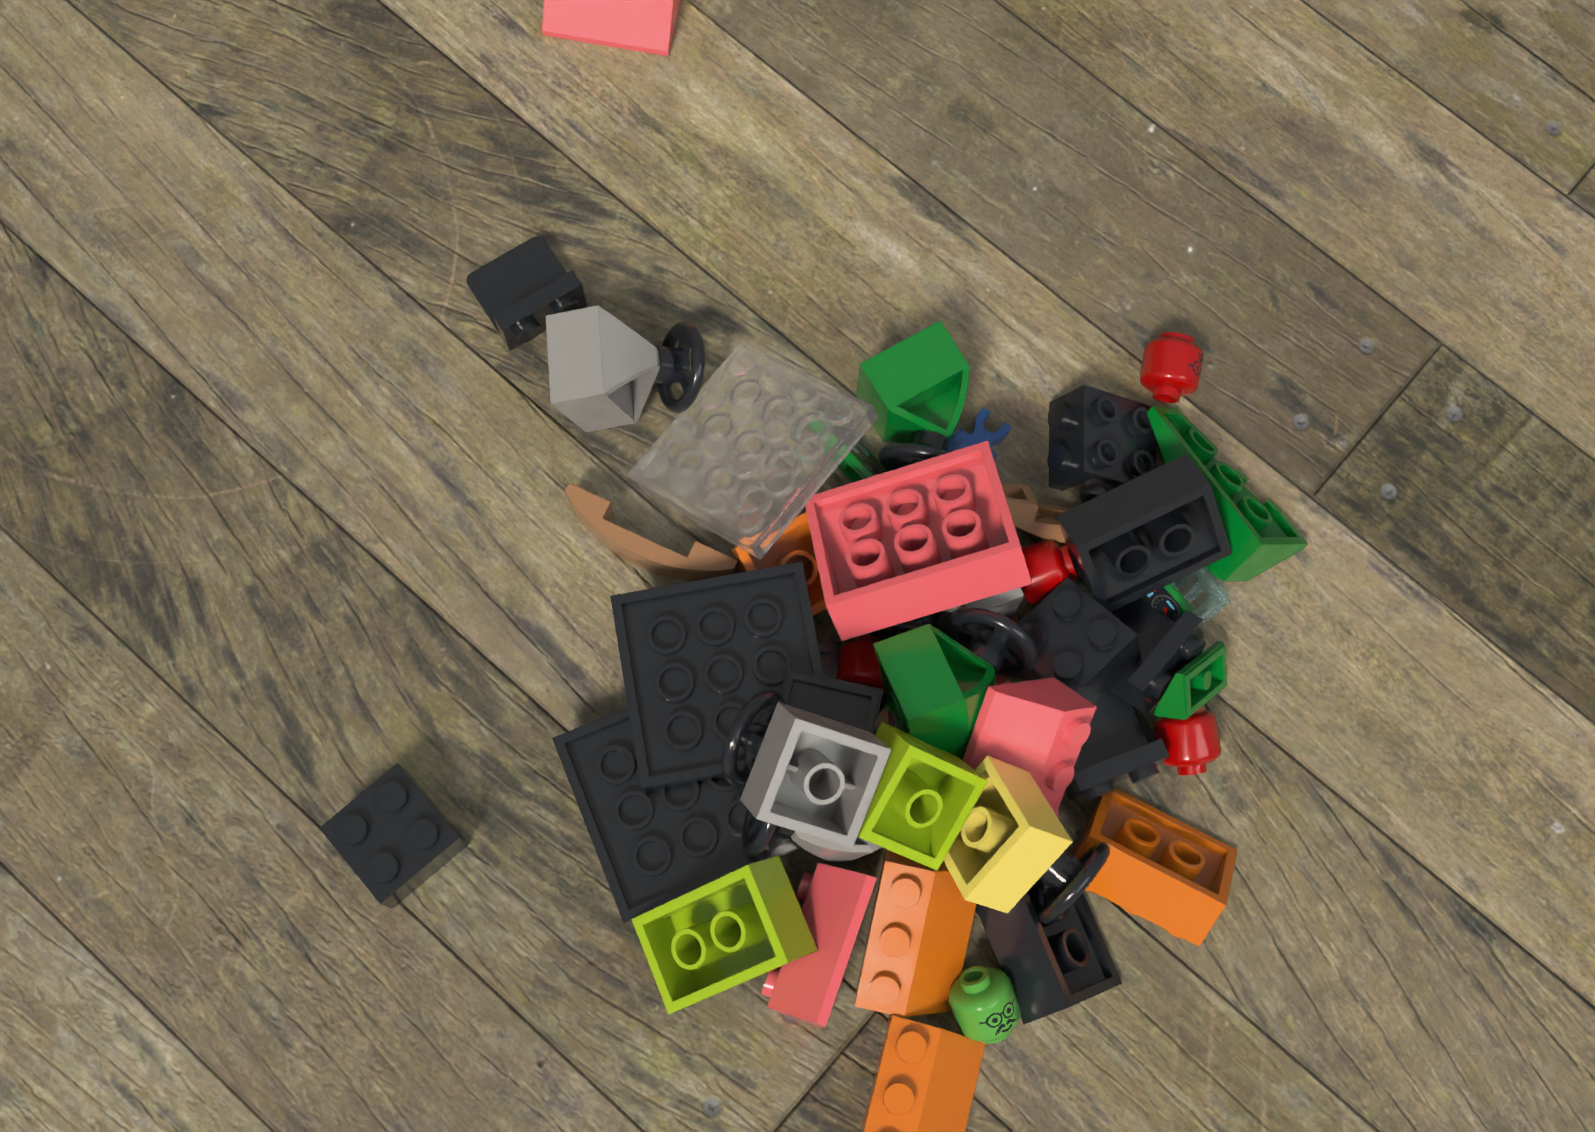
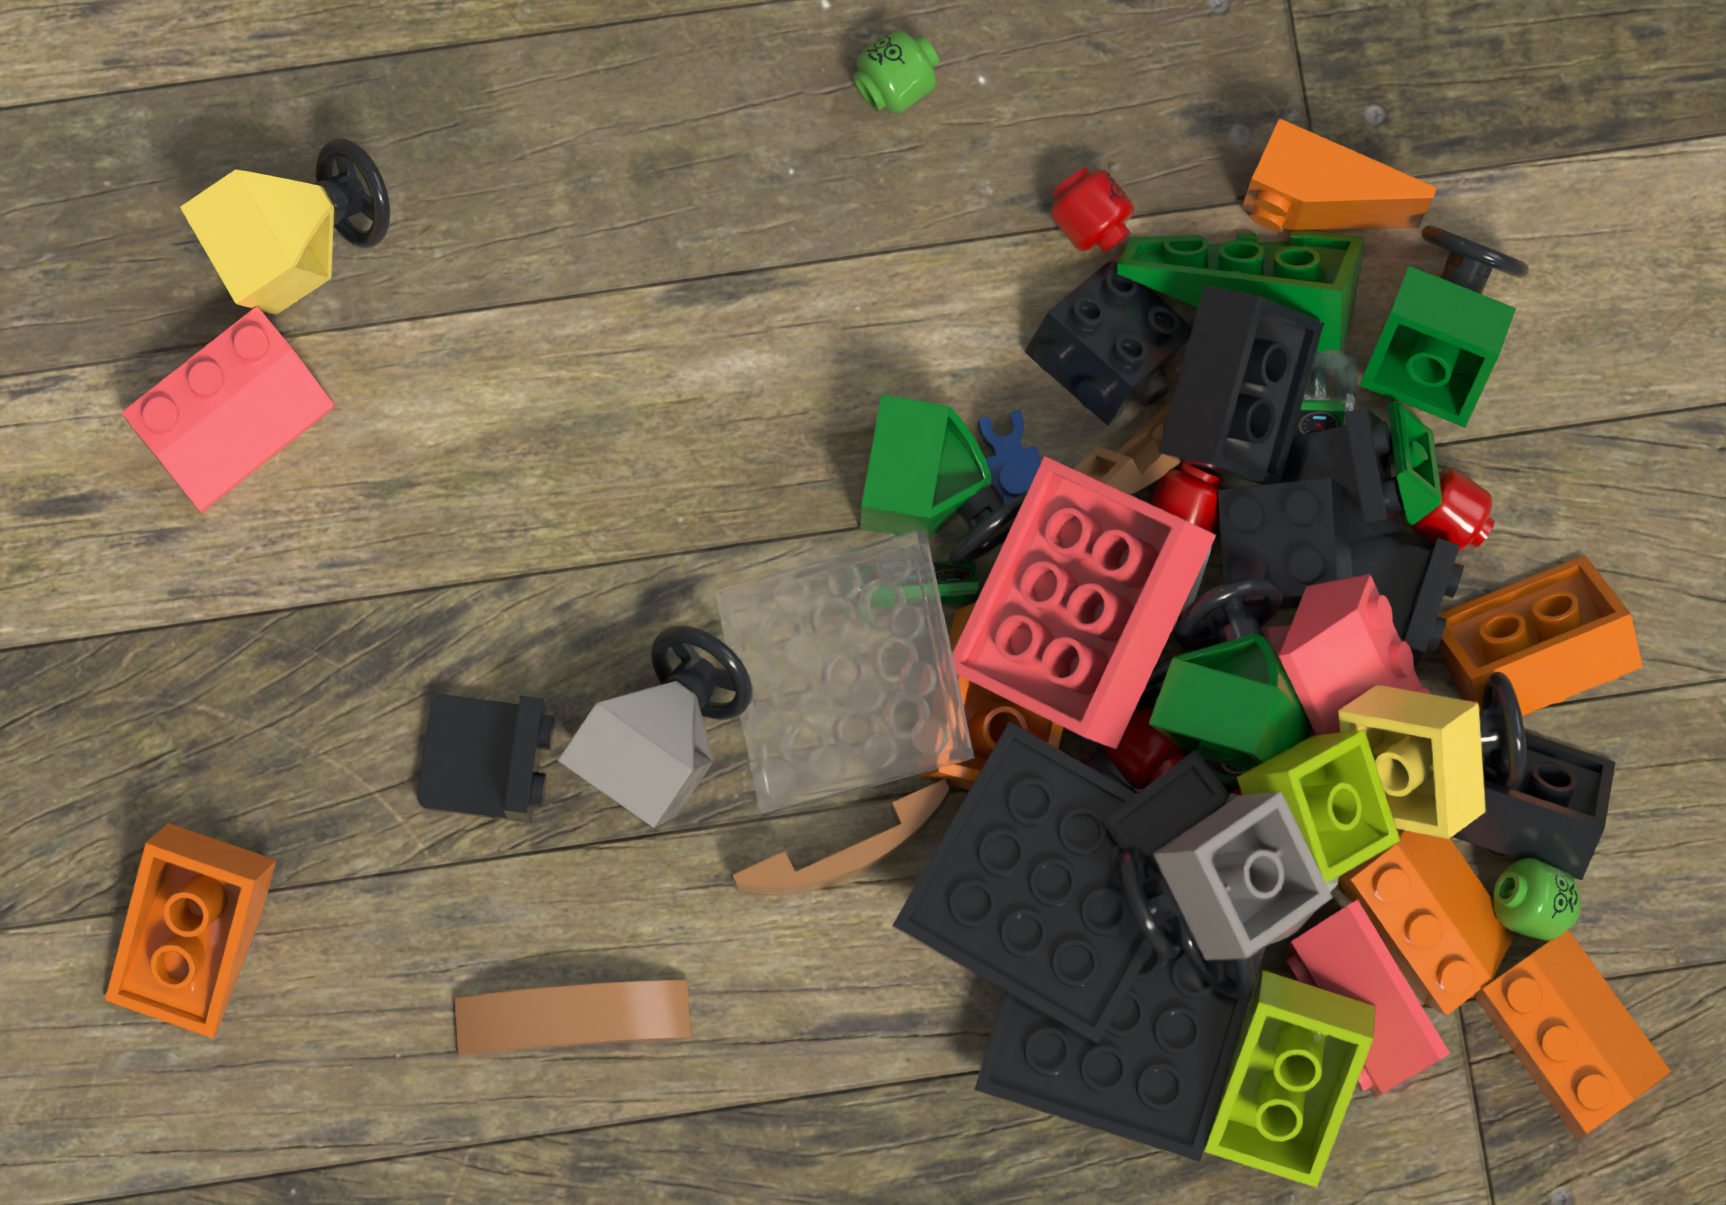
camera: 50 degrees left, 5 degrees up
(284, 208) = (188, 928): none -> orange slope
(411, 469) = (572, 1016): none -> medium nougat slope
(1148, 190) = (896, 72): none -> bright green head
(1294, 634) = (1443, 331): none -> green piece
(1319, 491) = (1327, 187): none -> orange slope

